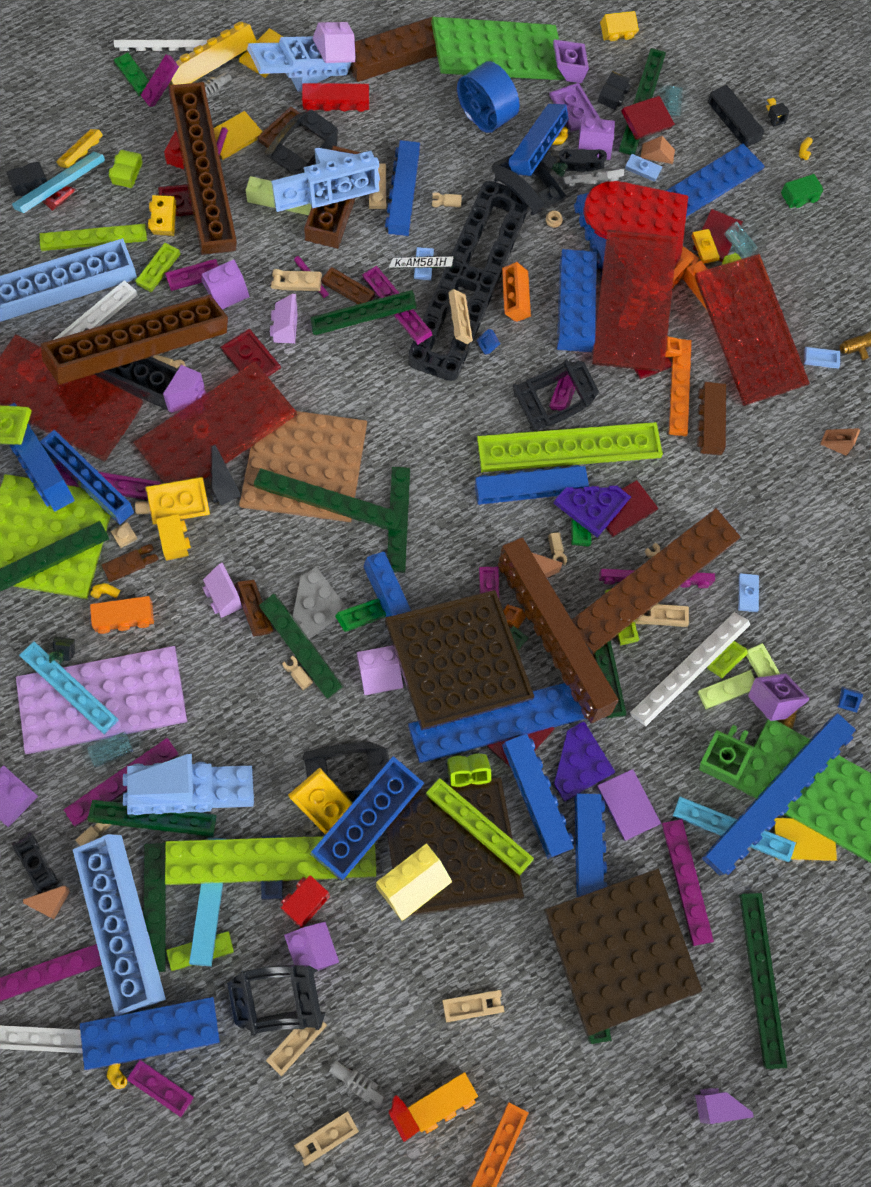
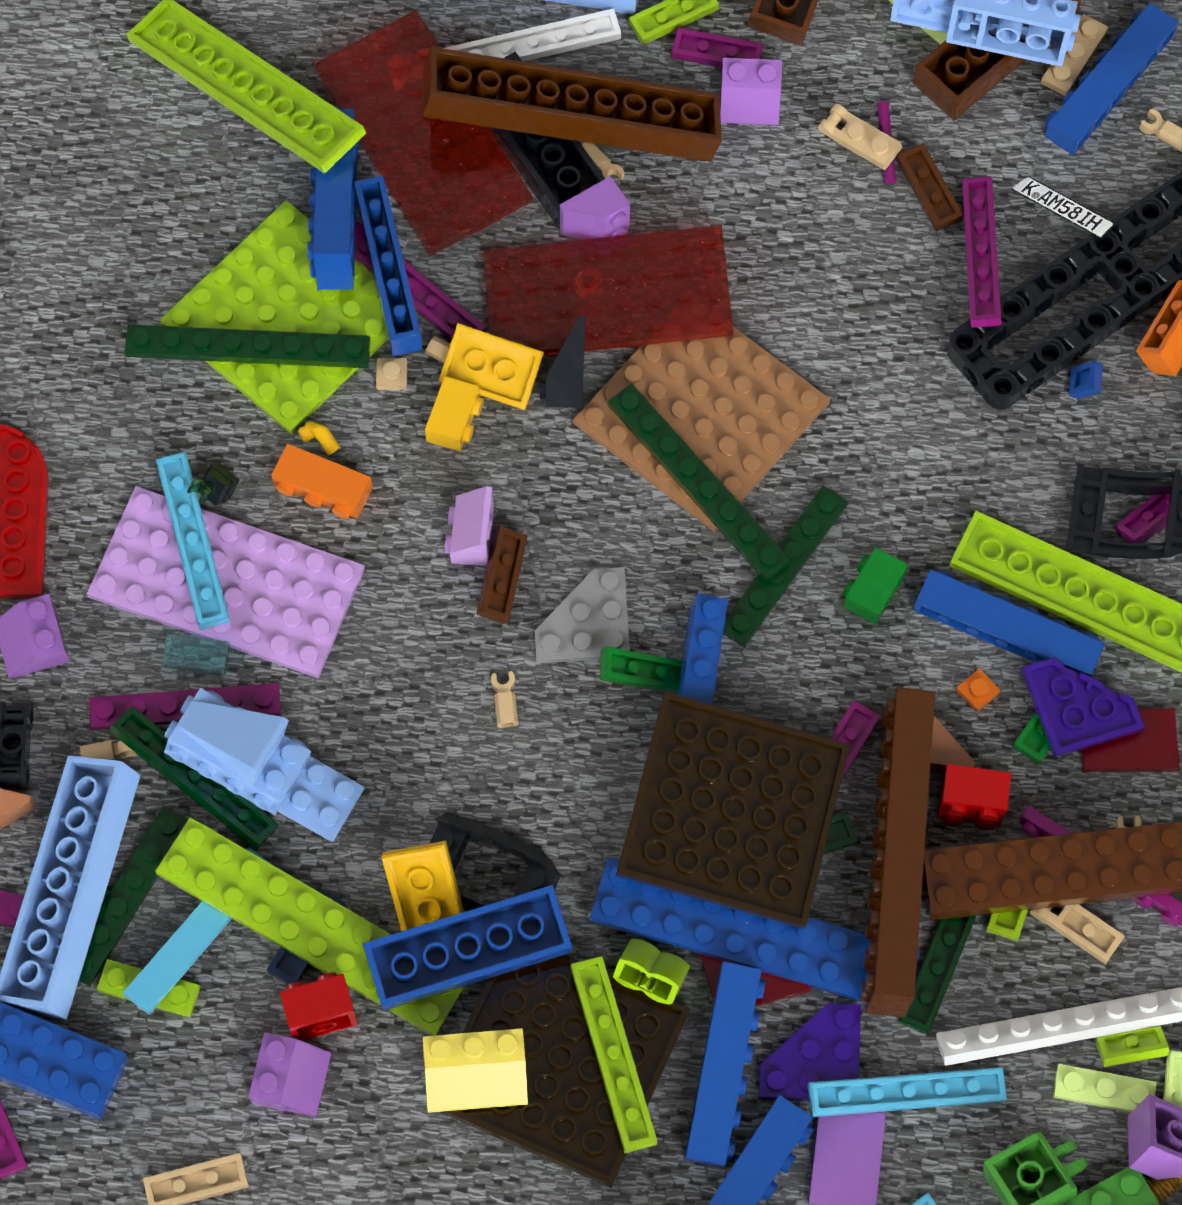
camera: 40 degrees right, 0 degrees up
(129, 563) = (374, 416): reddish brown hinge -> none
(248, 349) = (725, 202): dark red tile -> none
(284, 320) = (804, 188): lavender slope -> none
(301, 646) = (532, 665): dark green plate -> none
(305, 995) = (242, 1121): black wedge -> none
(363, 312) = (924, 237): dark green plate -> none
(379, 670) = (615, 761): lavender slope -> none
(423, 273) = (1059, 226): light blue tile -> none
(452, 502) = (875, 585): none -> green brick
(460, 316) = (1061, 320): tan plate -> none
(514, 616) = (858, 801): orange slope -> none
(536, 526) = (978, 690): none -> orange plate
(557, 547) = (987, 737): tan bar -> none
(573, 579) = (973, 796): none -> red brick
(636, 752) = (907, 1092): none -> medium azure tile

